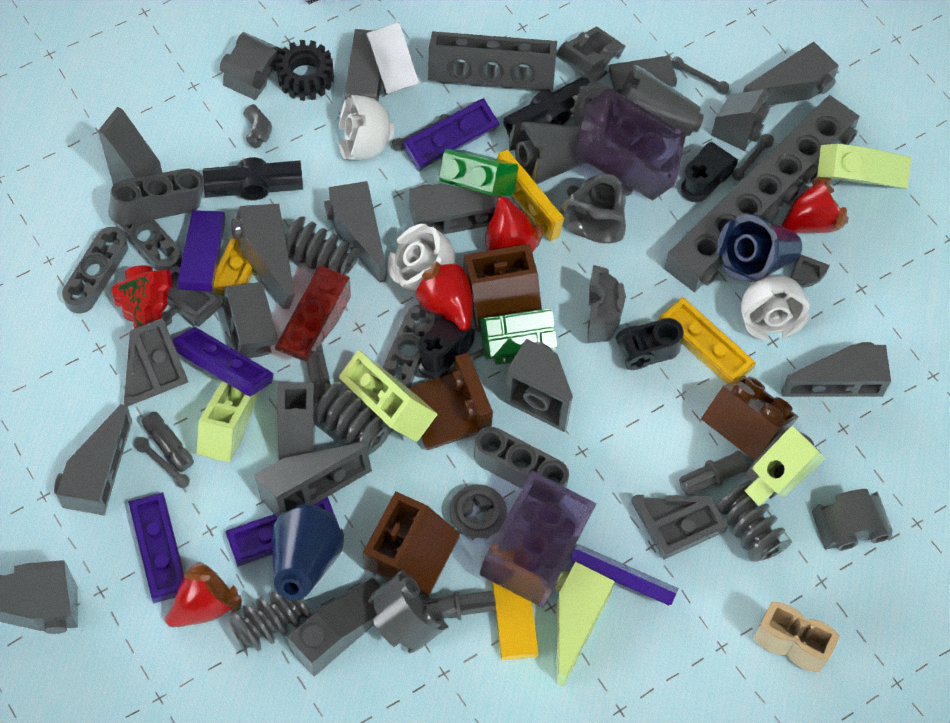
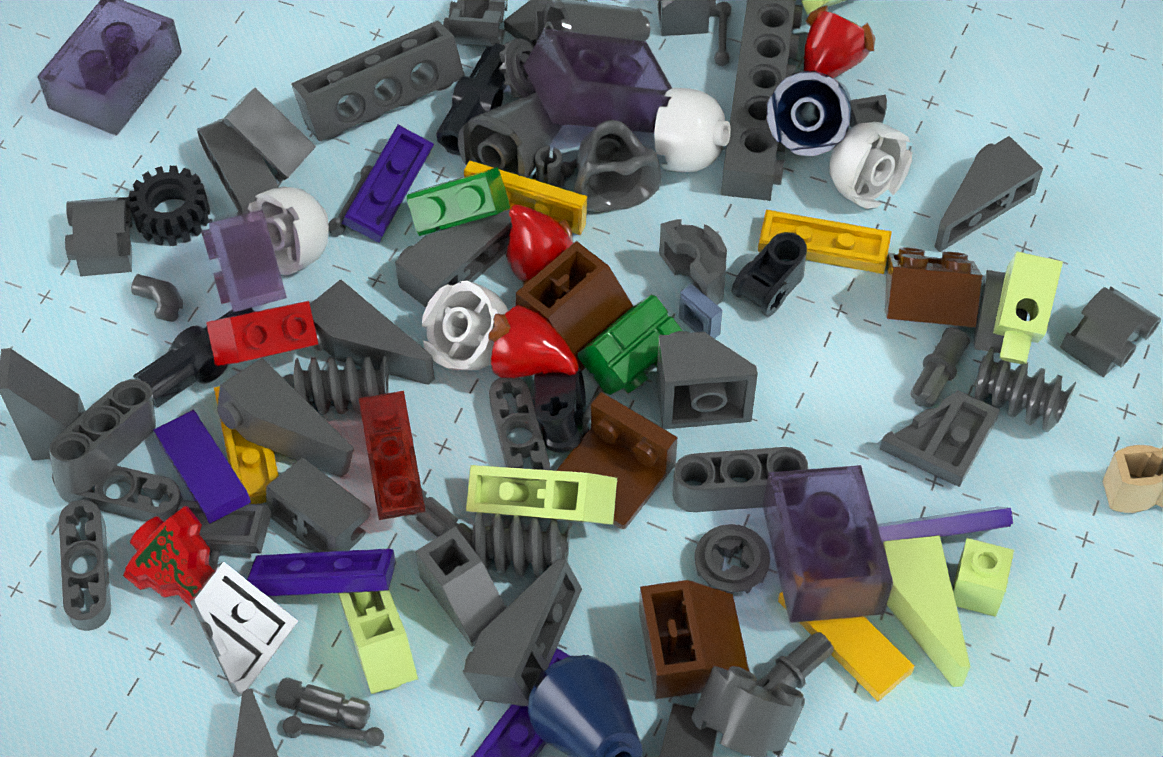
camera: 30 degrees left, 5 degrees down
(293, 187) = (262, 333): none -> red brick
(310, 133) = (246, 259): none -> clear purple brick
(556, 187) = (549, 169): none -> dark grey pin
(581, 340) = (699, 311): none -> sand blue tile
(624, 625) = (982, 576): none -> yellowish green brick
(665, 211) = (690, 130): none -> white cylinder
(707, 172) = (692, 63): black piece -> none

